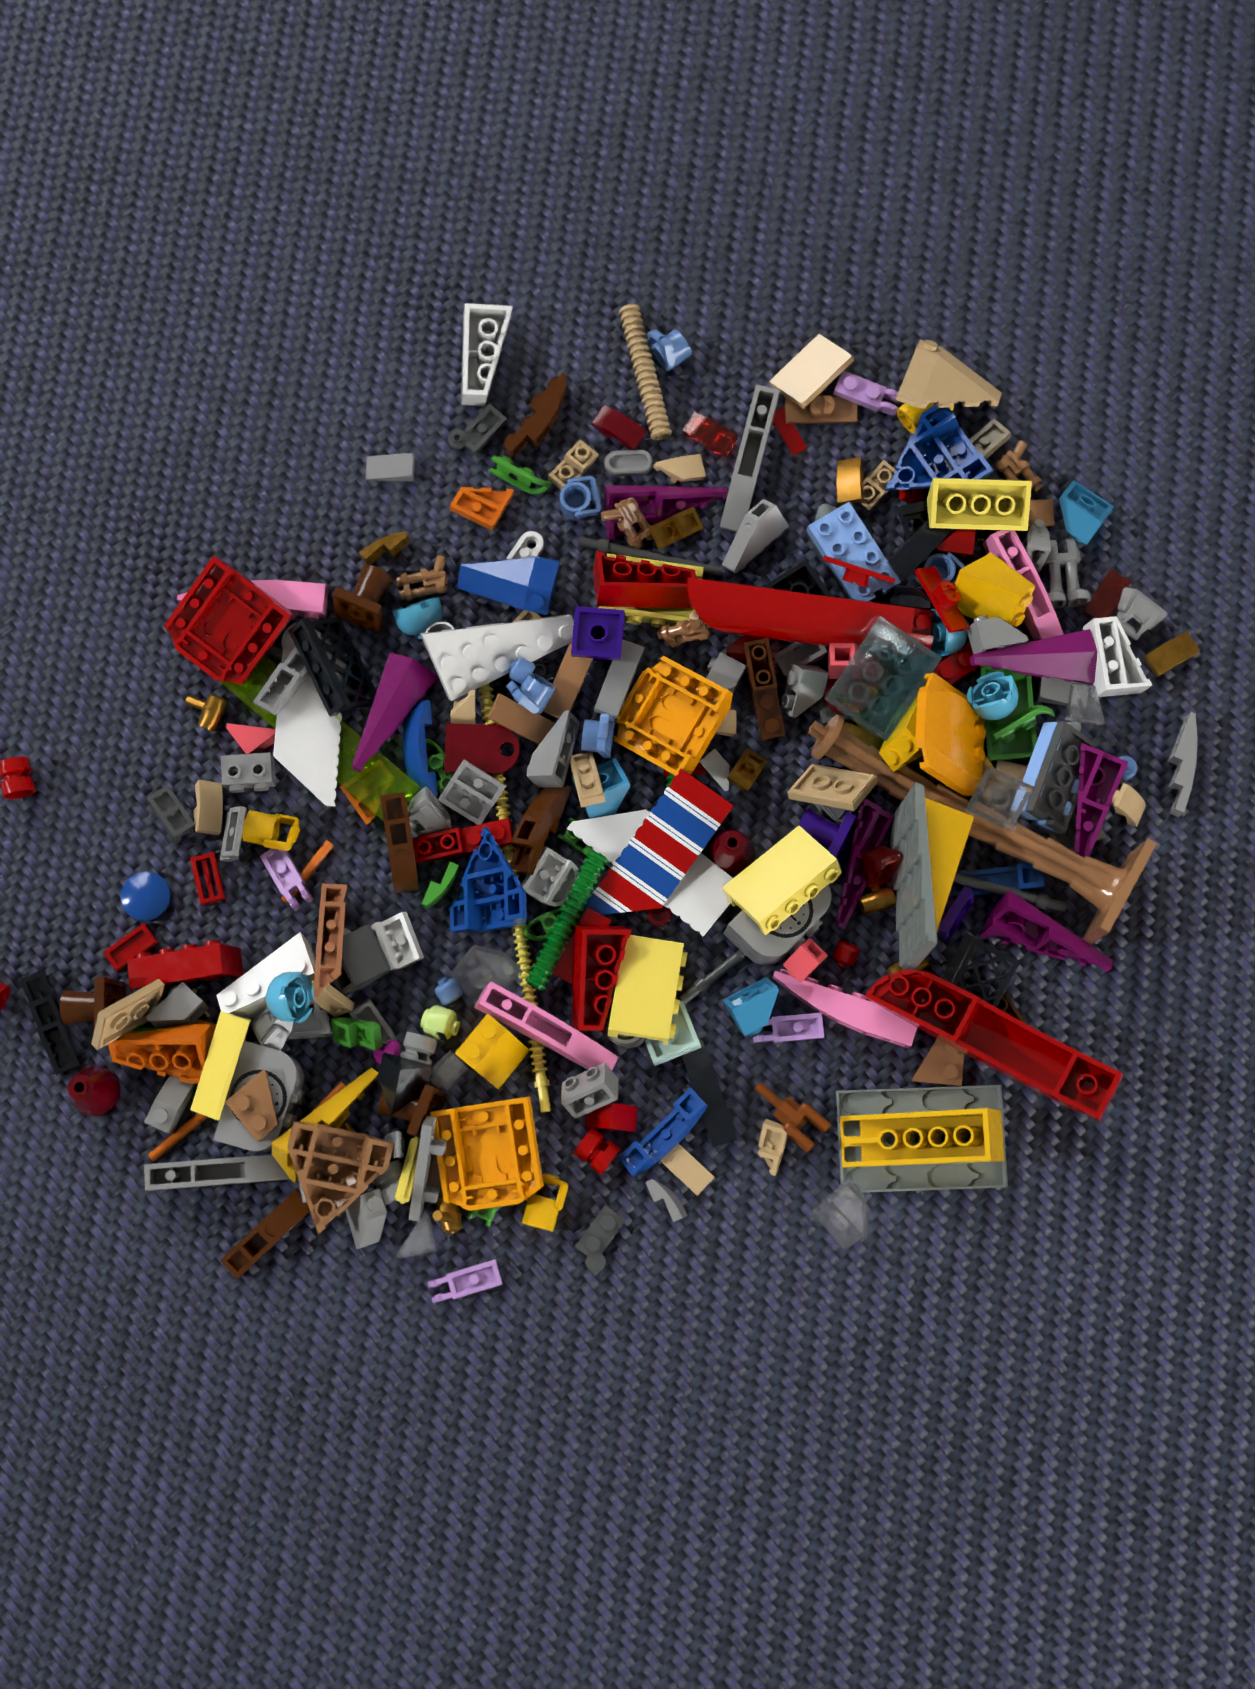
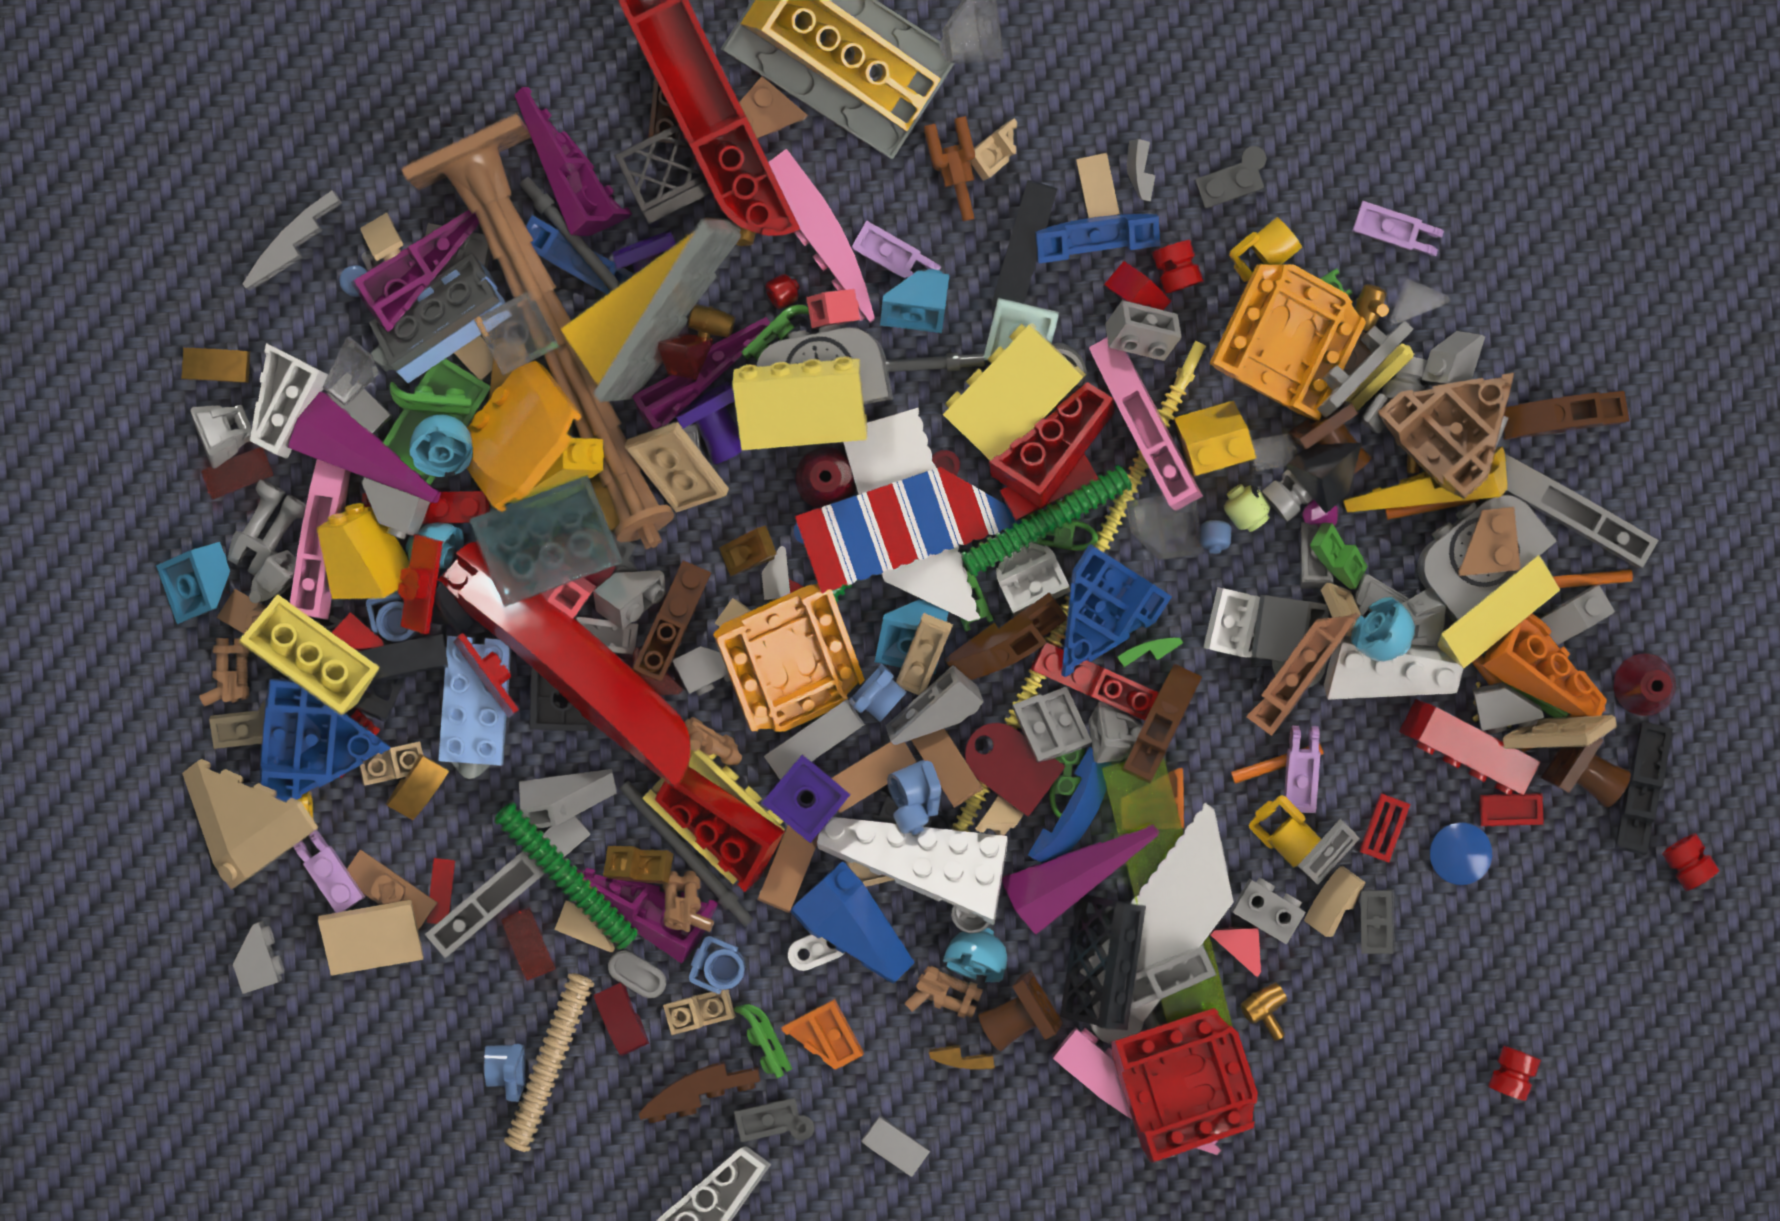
camera: 145 degrees left, 10 degrees up
(577, 582) = (787, 870): none -> medium nougat piece
(717, 485) = (566, 876): none -> green piece
(830, 927) = (778, 327): none -> bright green piece
(871, 310) = (256, 962): none -> light grey slope

